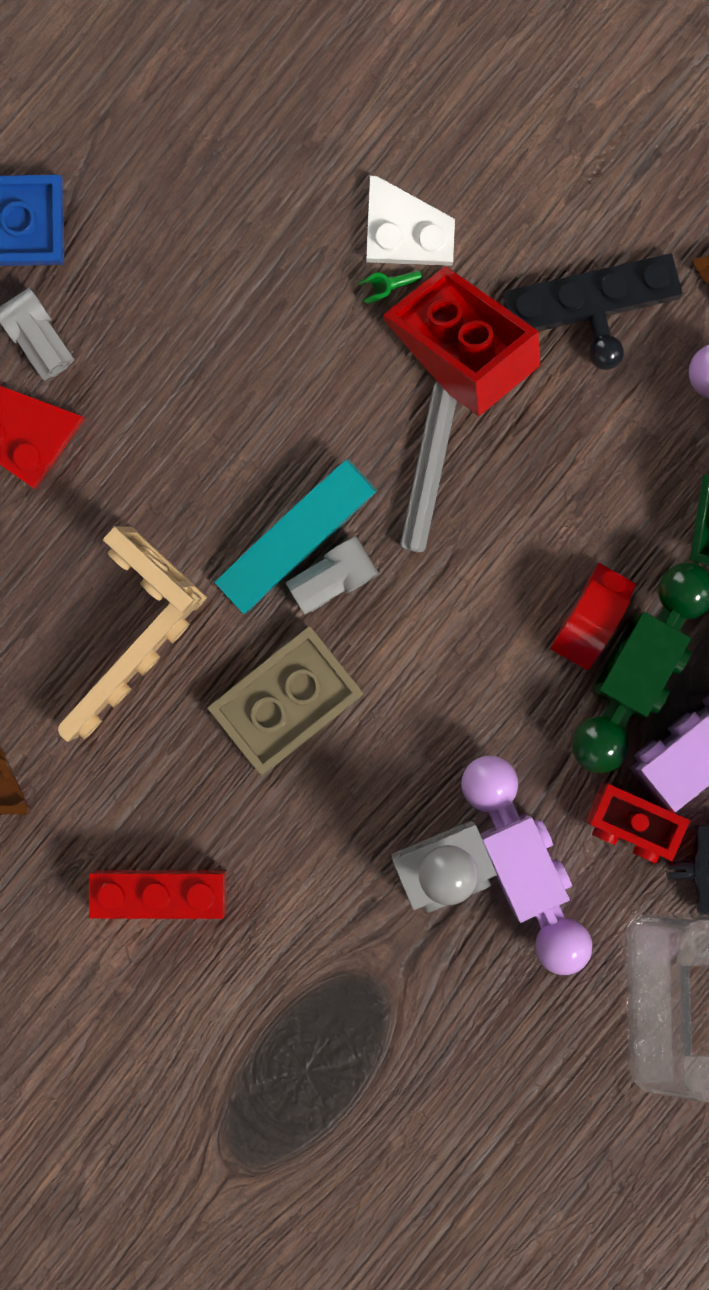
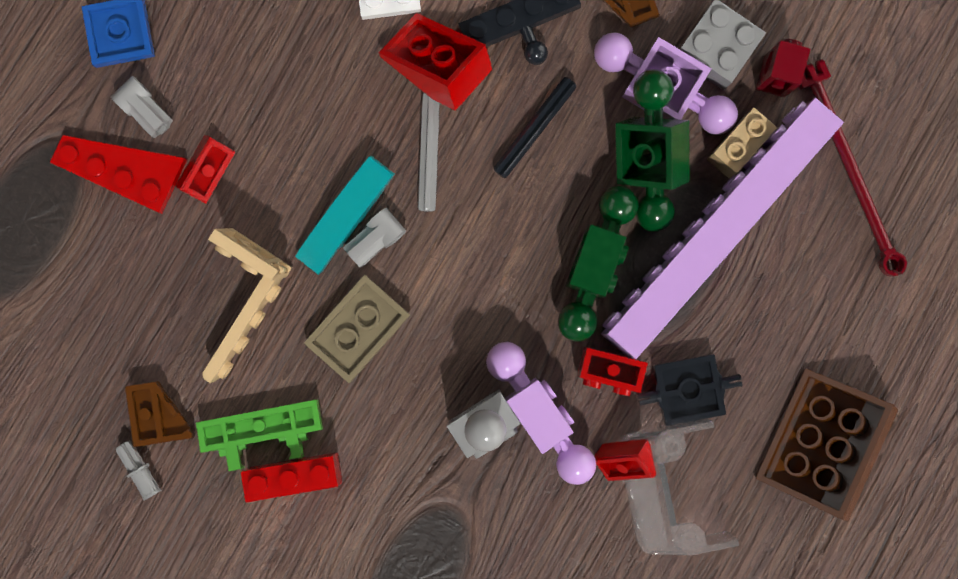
camera: 15 degrees left, 0 degrees up
(88, 817) = (234, 432): none -> bright green hinge
(108, 436) = (205, 169): none -> red slope
(385, 284) = (376, 32): green hand -> none
(586, 458) = (535, 127): none -> black axle
(594, 617) = (558, 234): red brick -> none
(635, 953) = (626, 460): none -> red slope

